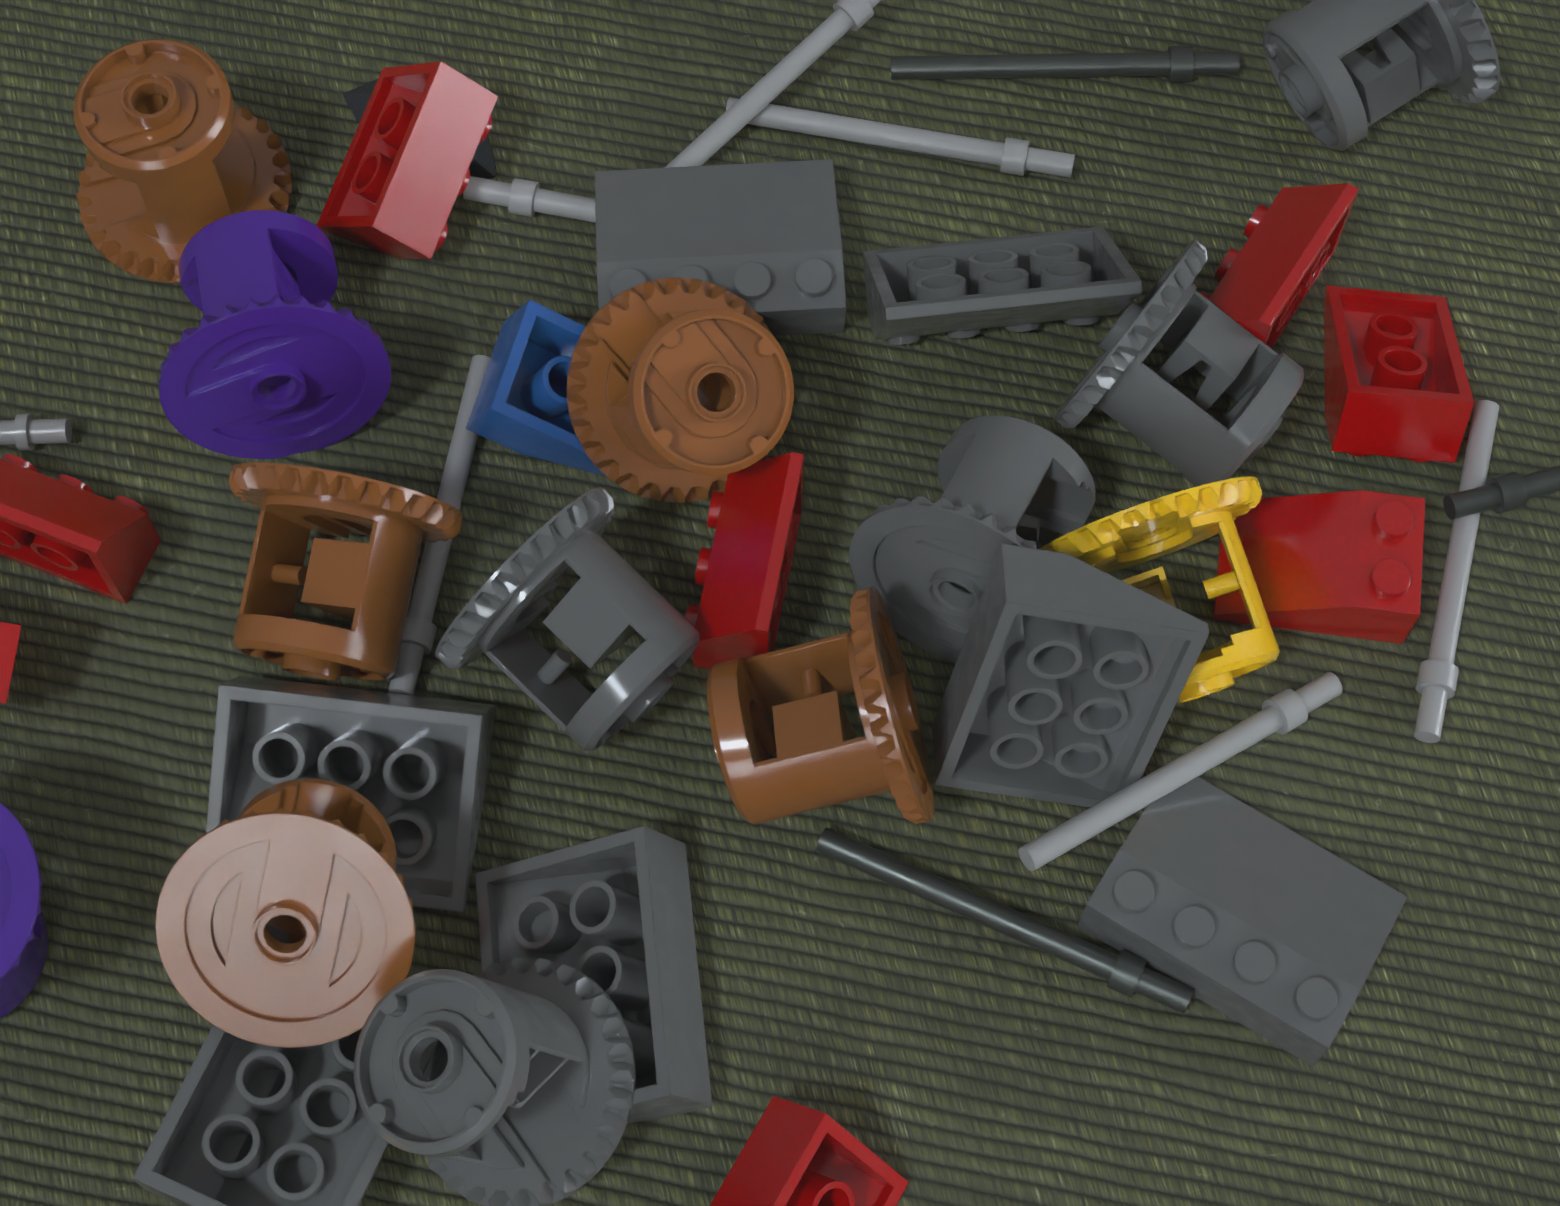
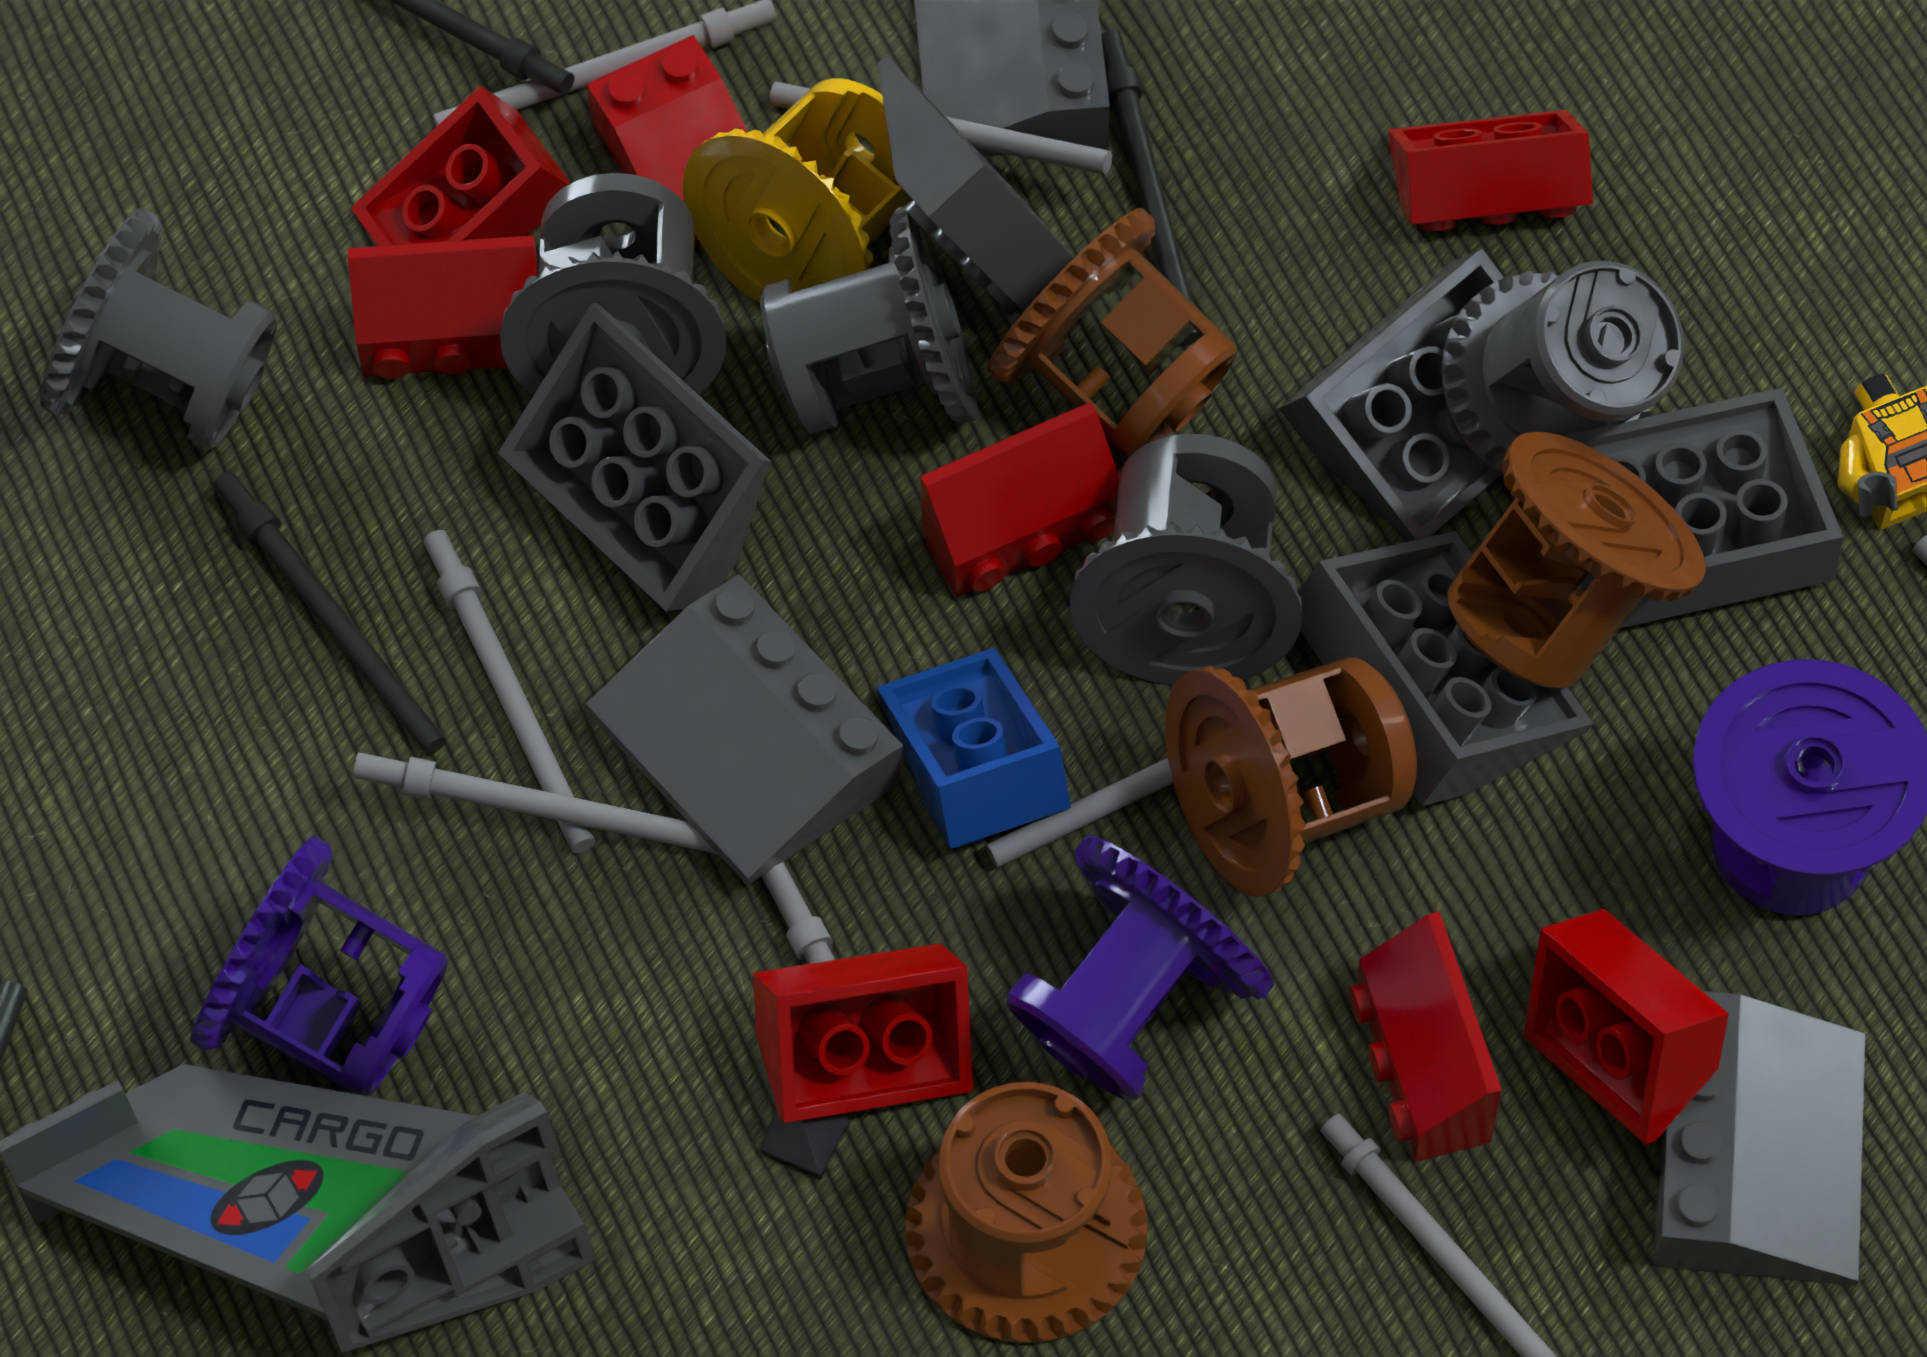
camera: 125 degrees left, 5 degrees down
(677, 389) = (956, 621): dark orange piece -> none

